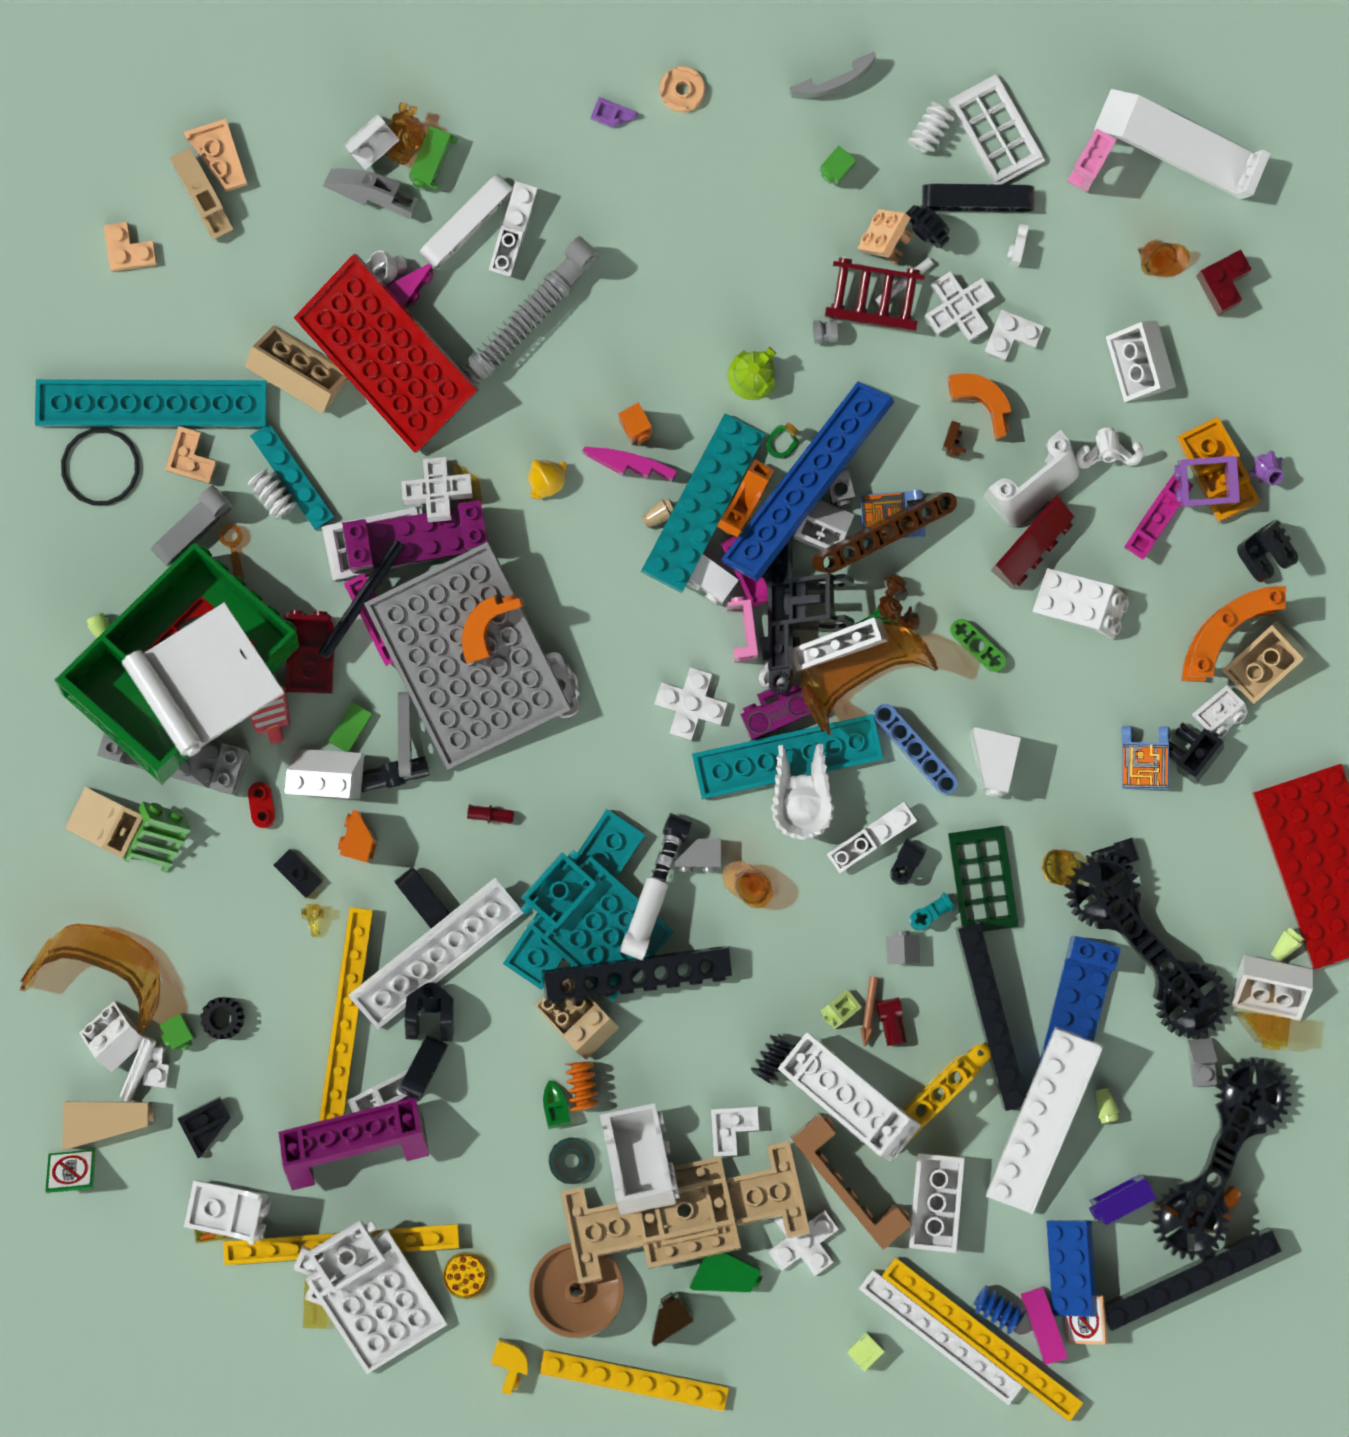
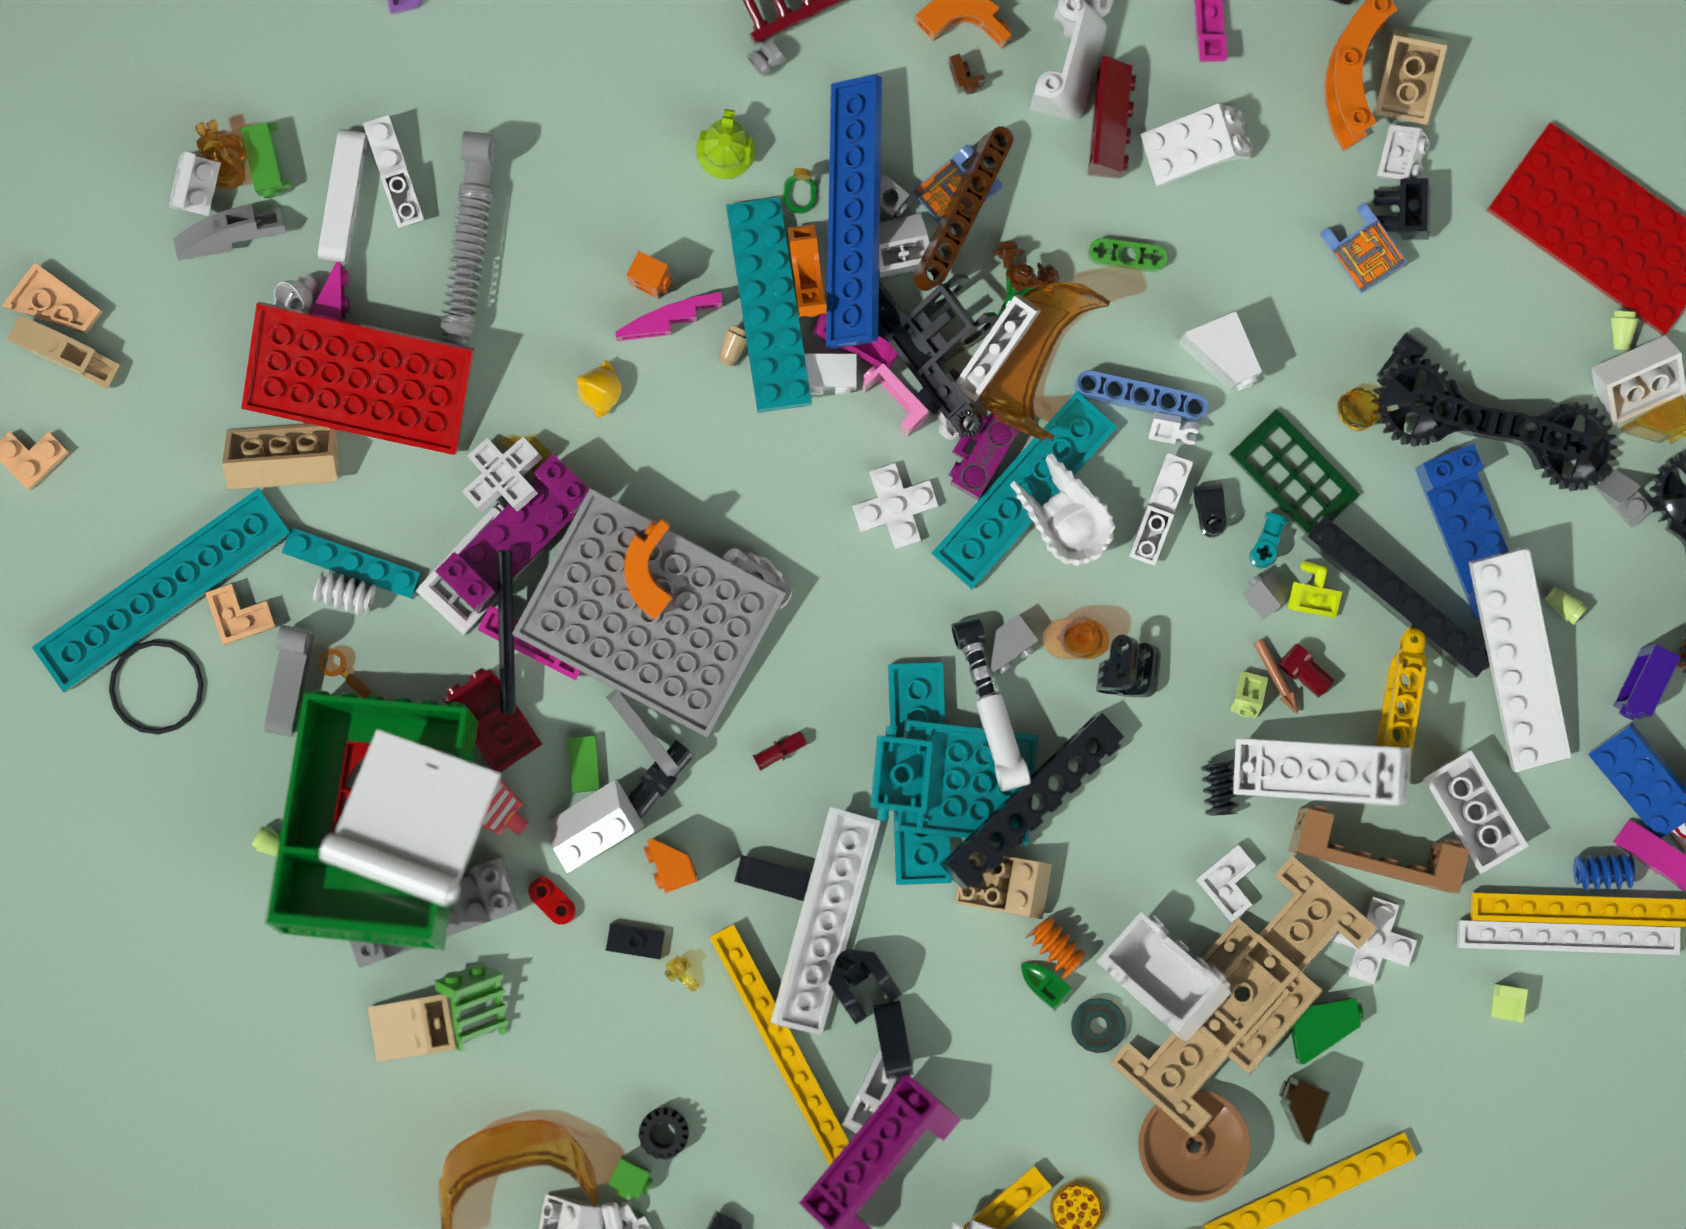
camera: 45 degrees left, 0 degrees up
(769, 931) = (1126, 669): none -> black piece
(918, 786) = (1169, 428): none -> white plate
(934, 975) = (1314, 598): none -> neon yellow plate

